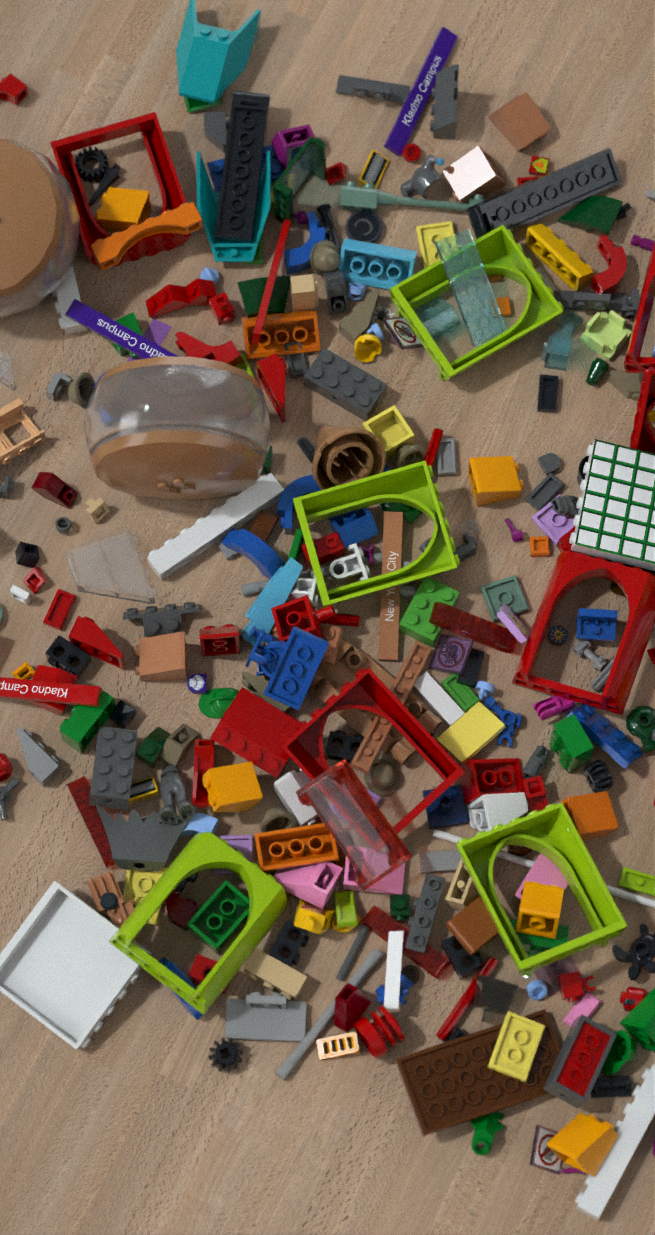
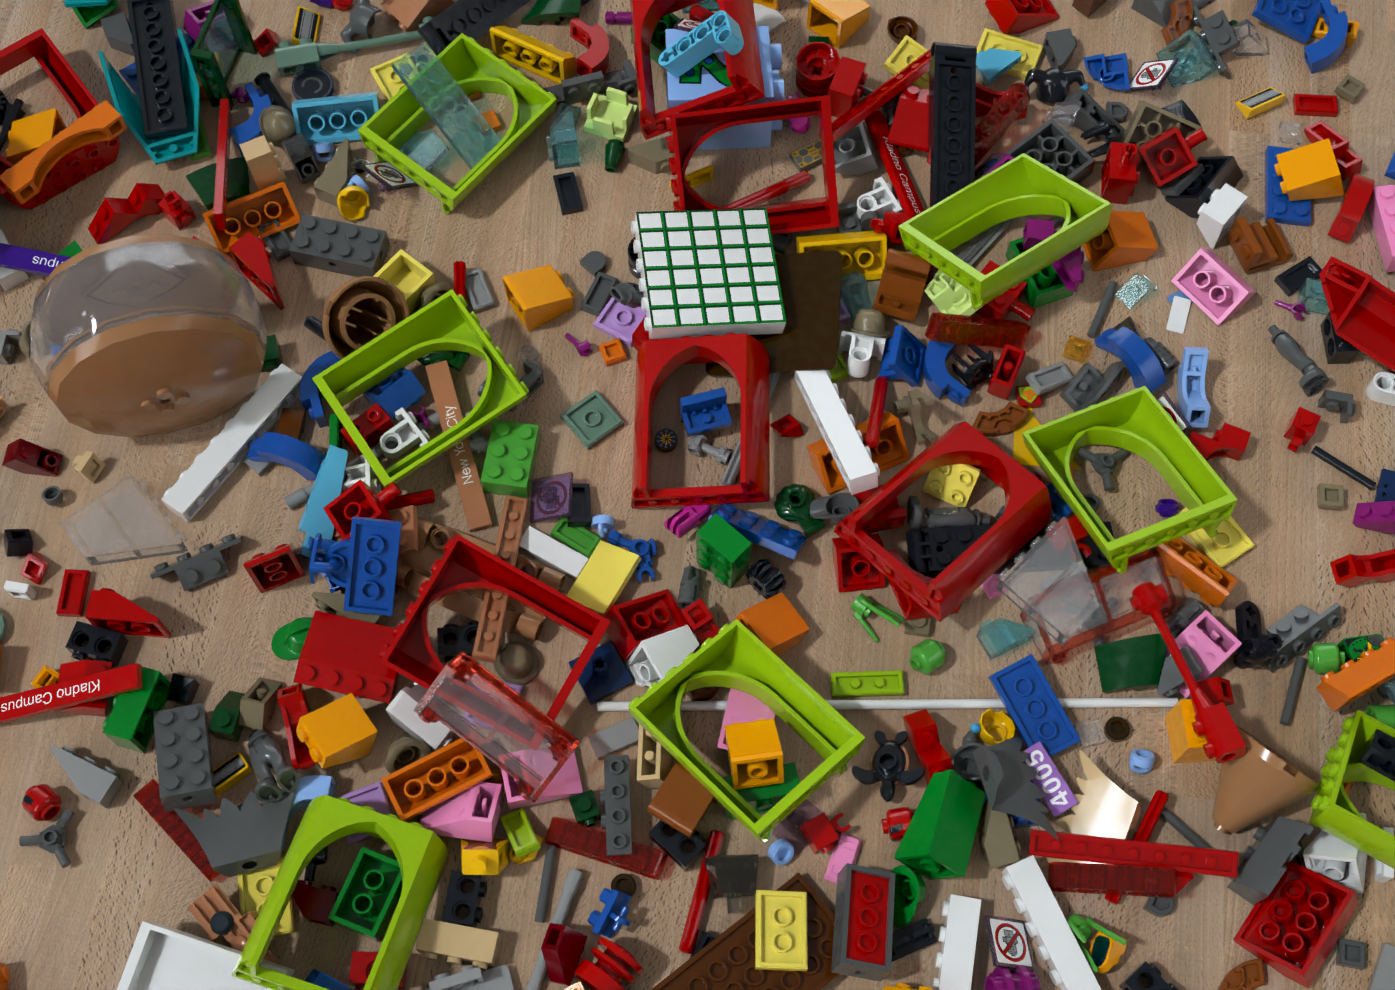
camera: 20 degrees left, 5 degrees down
(162, 657) = (212, 608): nougat slope -> none
(197, 683) = (264, 625): tile -> none
(210, 274) = (155, 178): light blue tile -> none
(393, 969) = (601, 888): white sticker -> none
(472, 627) = (567, 458): clear red beam -> none
(513, 623) = (611, 440): lavender tile -> none

